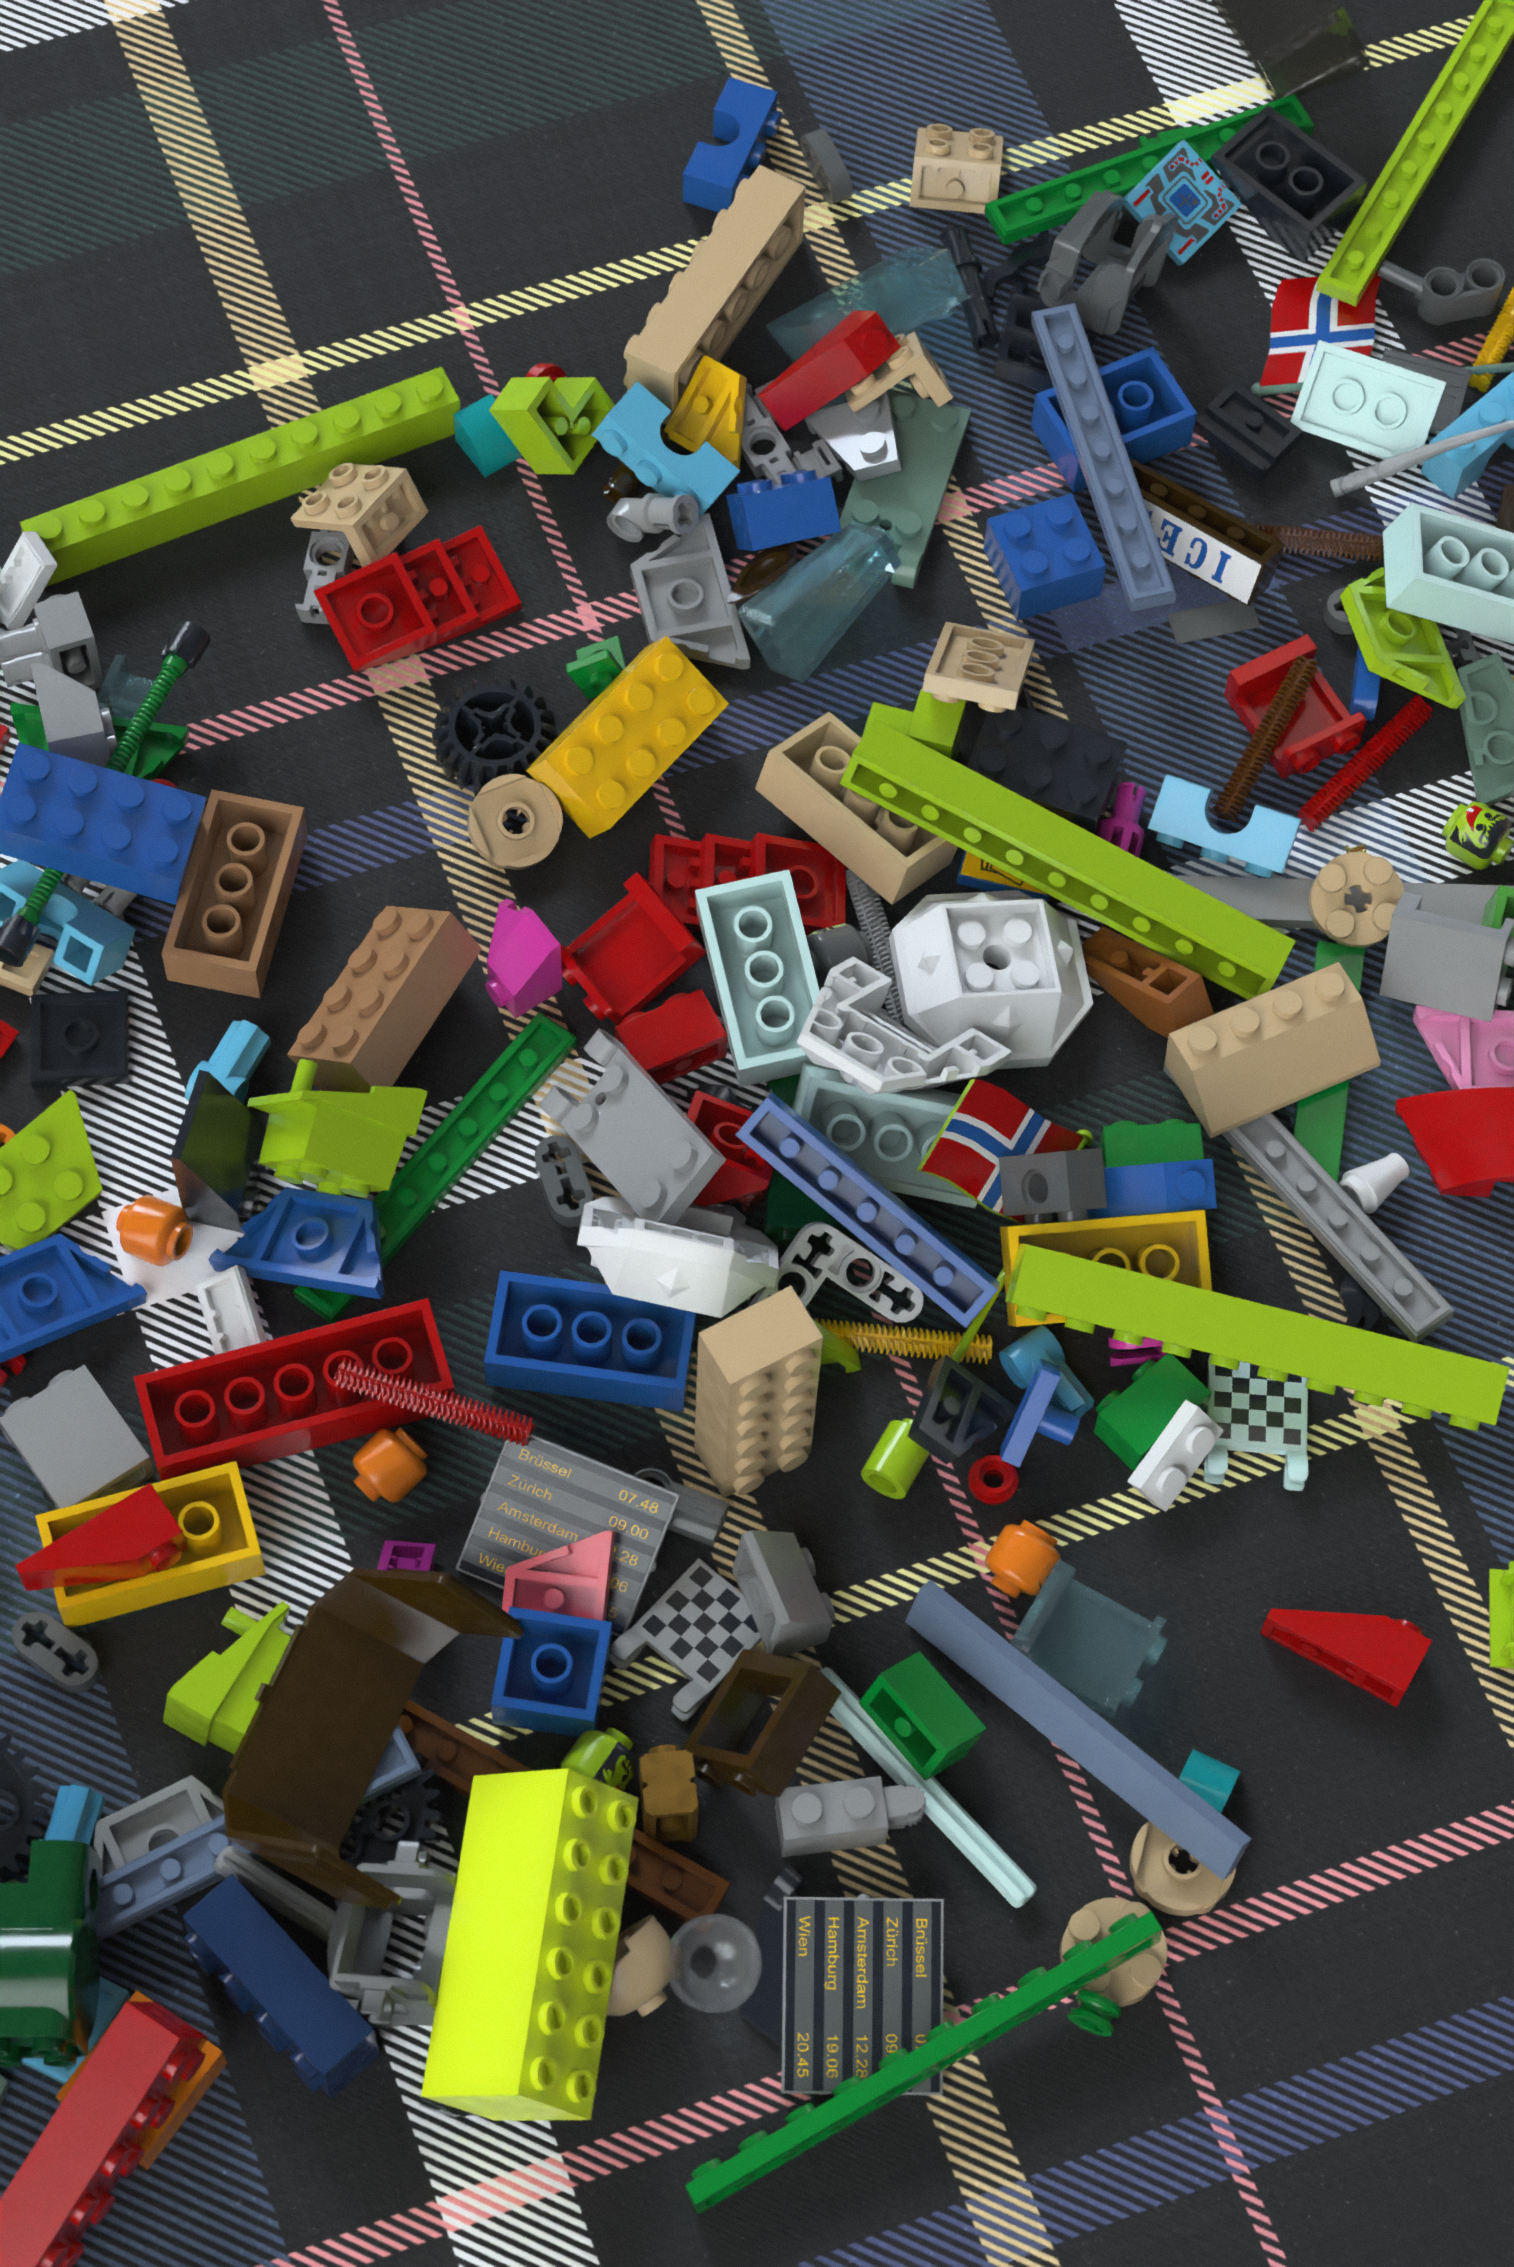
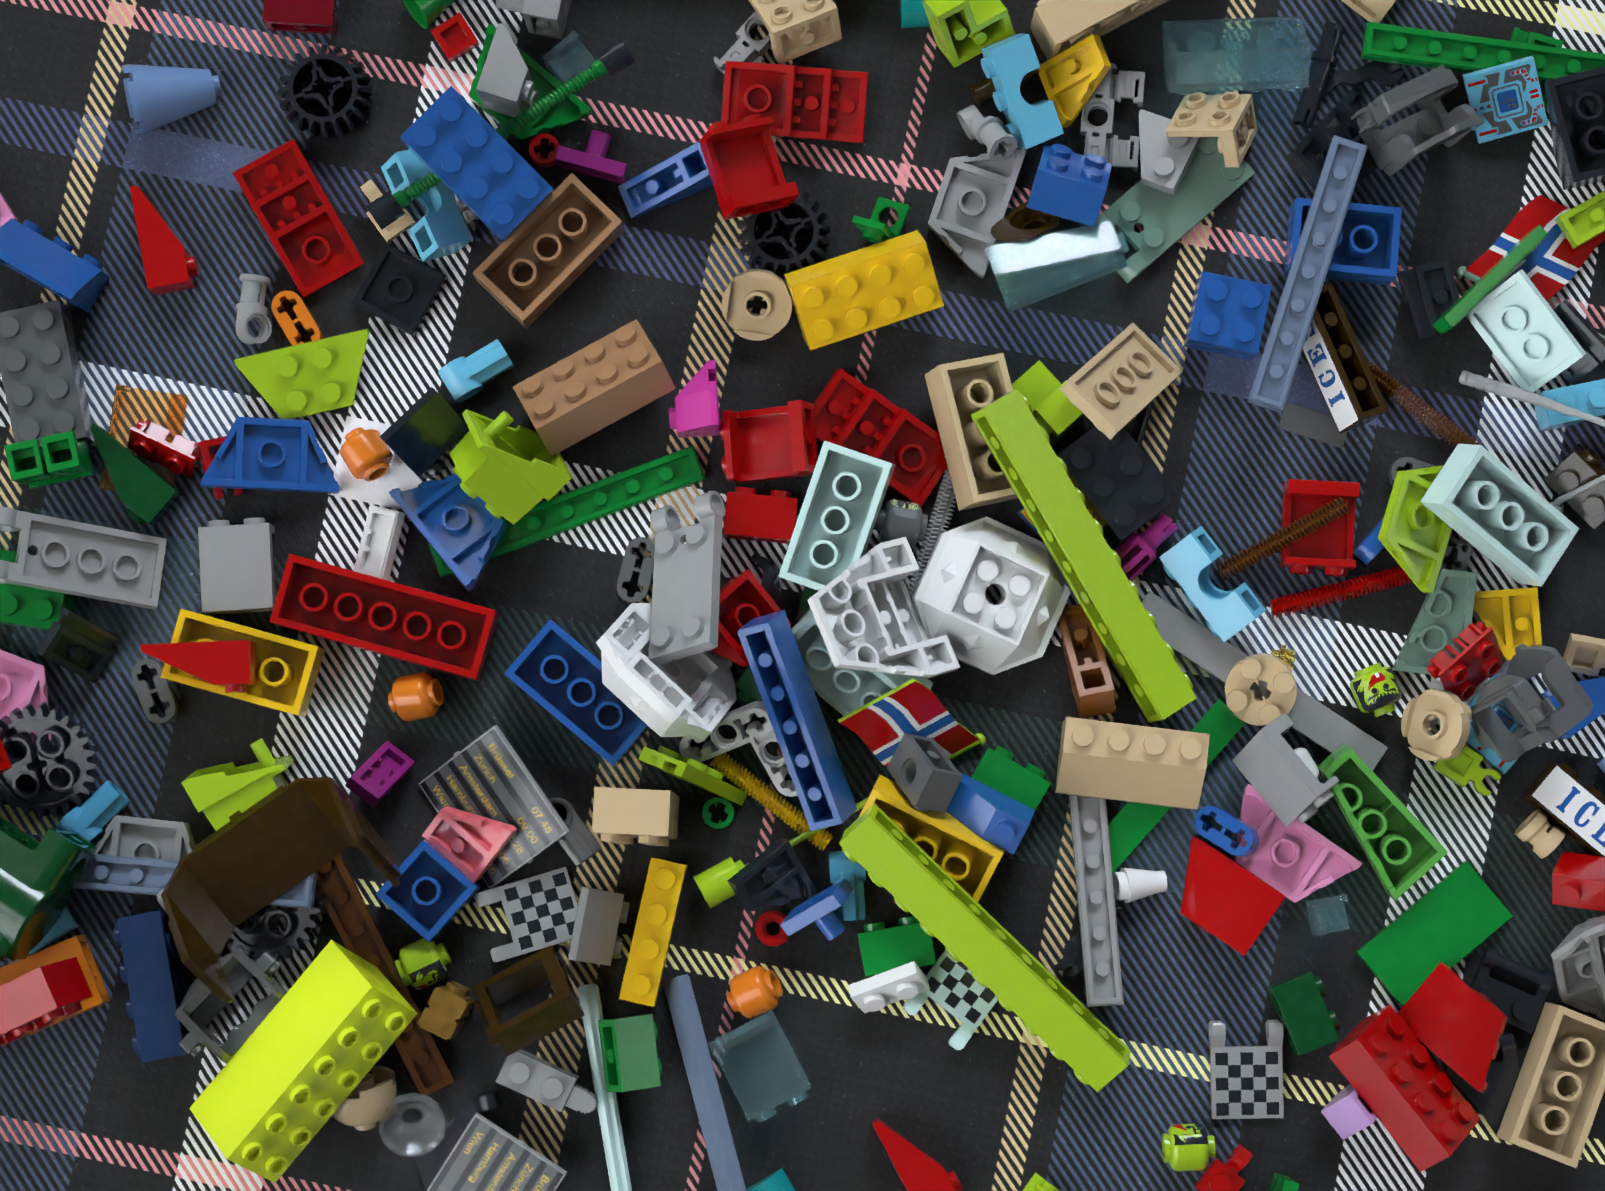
camera: 35 degrees right, 20 degrees up
(245, 777) = (593, 160): none -> magenta tile
(333, 745) = (667, 182): none -> blue slope
(410, 675) = (746, 167): none -> red panel
(434, 1403) = (454, 684): red axle -> none
(829, 368) = (1172, 92): red slope -> none
(851, 1381) = (728, 810): none -> green bush
(856, 1562) = (653, 932): none -> yellow brick
(1294, 371) = (1490, 279): none -> green tile
(1430, 1077) = (1222, 837): none -> blue beam

